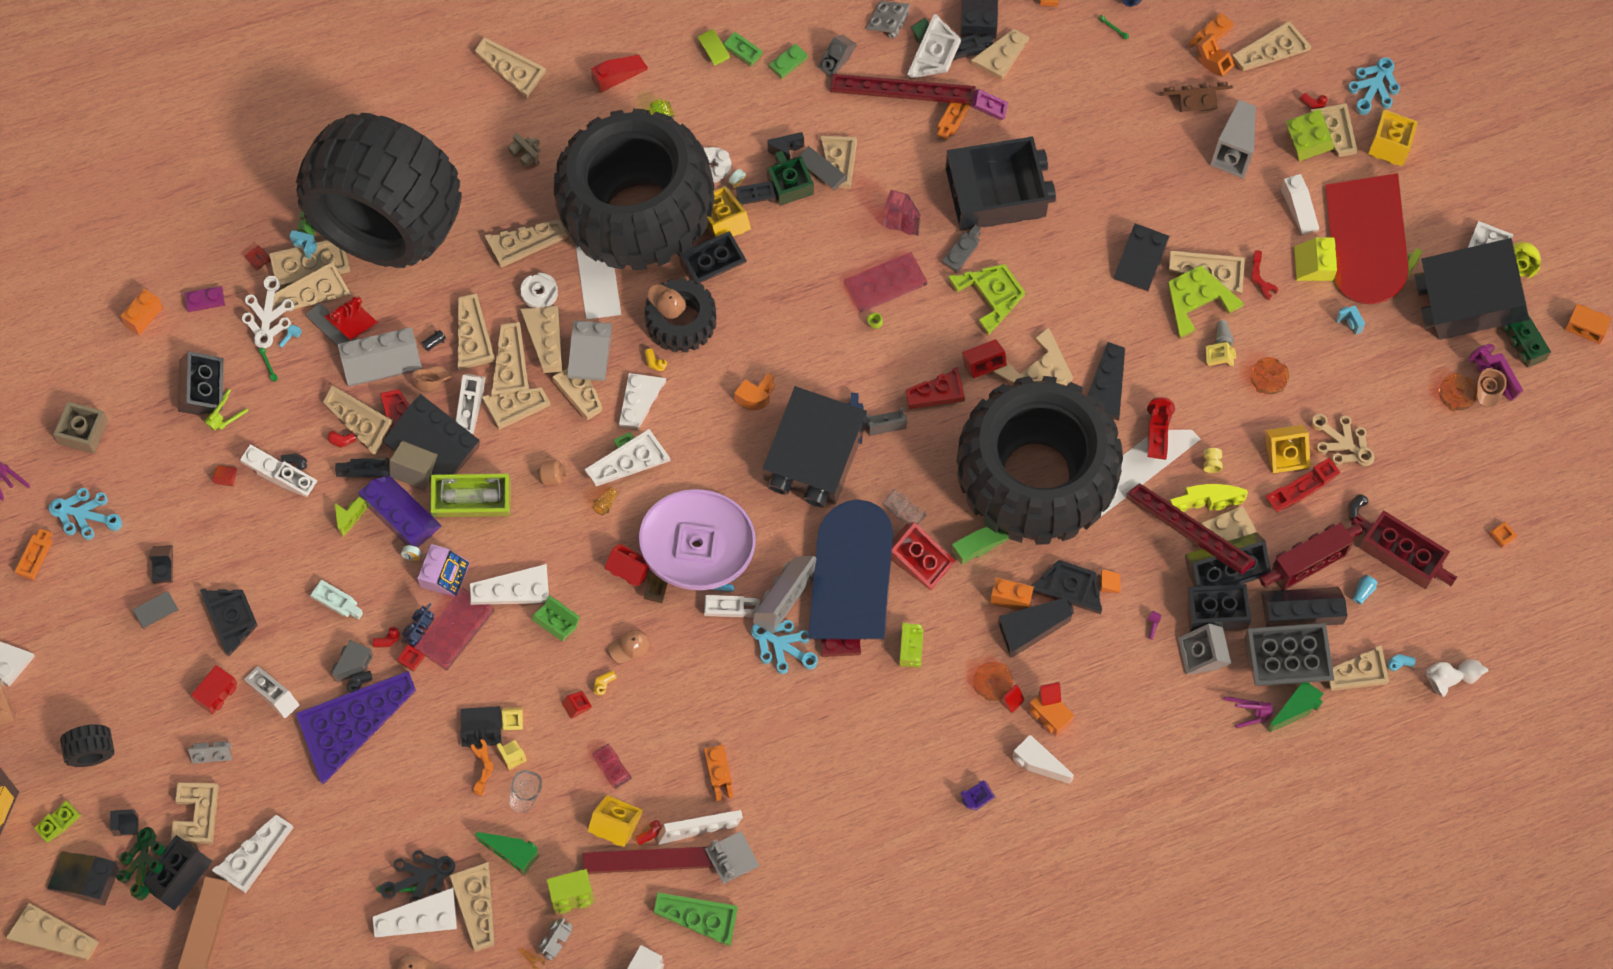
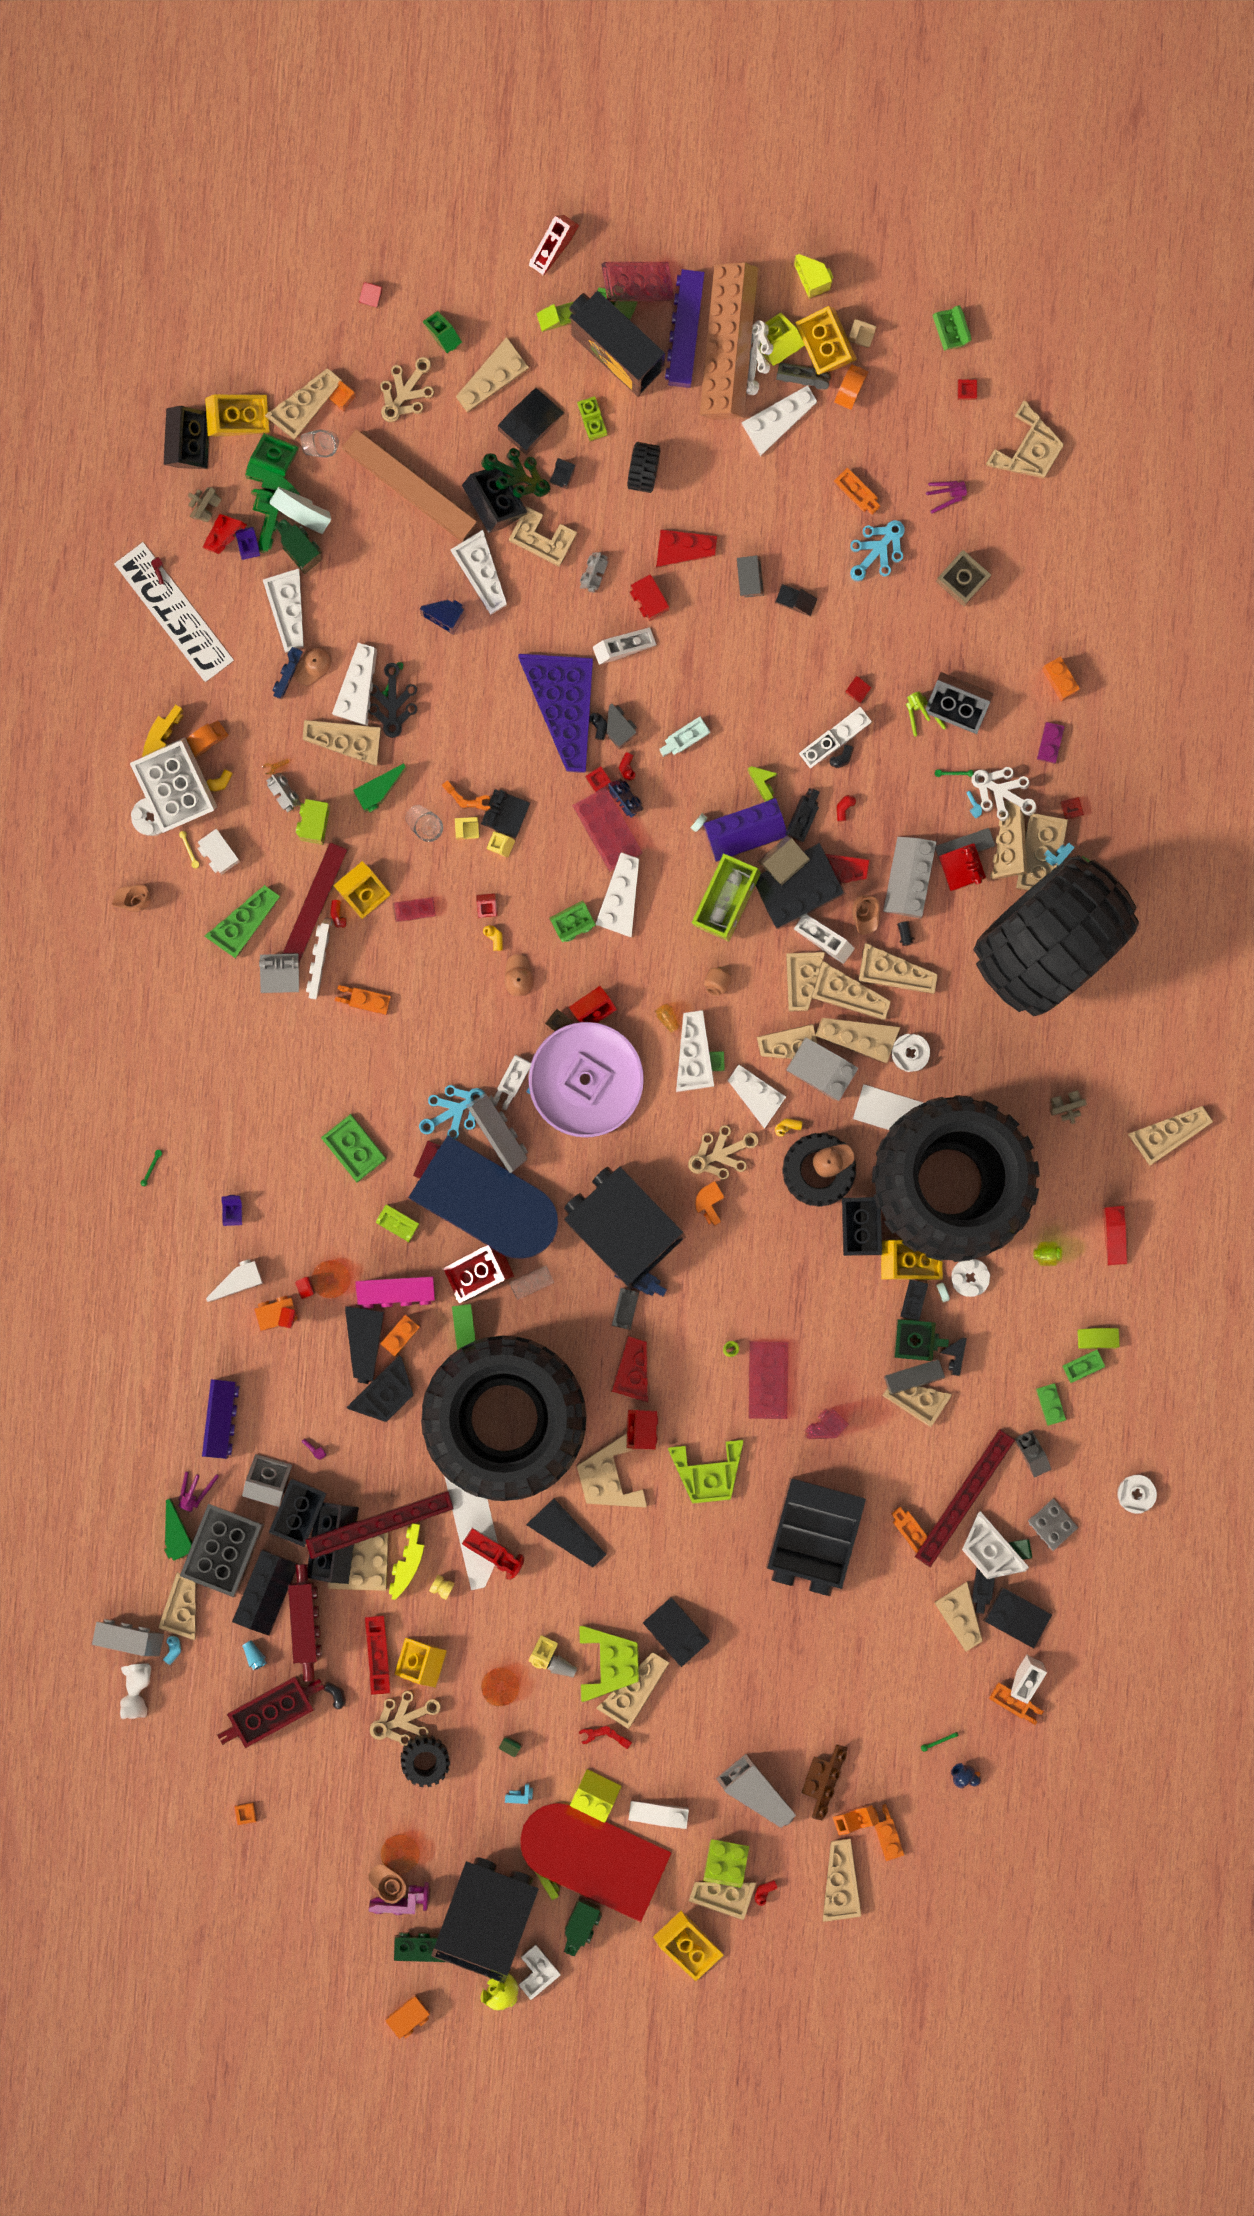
camera: 110 degrees right, 20 degrees up
(152, 684) = (682, 547): none -> red wing
(230, 616) = (714, 639): black wing -> none
(312, 862) = (444, 614): none -> clear blue slope
(363, 420) = (851, 834): tan wing -> none
(443, 571) = (666, 843): slope -> none
(523, 242) = (970, 1059): tan wing -> none
(706, 405) = (720, 1154): none -> tan plant
(862, 717) = (353, 1148): none -> bright green tile
(958, 892) = (158, 1153): none -> green hinge
(962, 250) = (766, 1468): dark grey hinge -> none
(973, 616) = (395, 1291): none -> dark pink slope
(989, 104) = (906, 1572): magenta plate -> none
(1109, 581) = (372, 1431): orange slope -> none
(1174, 715) = (219, 1419): none -> dark purple slope
(1314, 345) = (510, 1746): none -> dark green slope
(1372, 392) = (429, 1776): none -> black tyre
(1374, 84) = (754, 1964): medium azure plant -> none
(1415, 703) = (127, 1639): none -> light grey wedge
(1428, 220) = (580, 1925): none -> dark green hinge

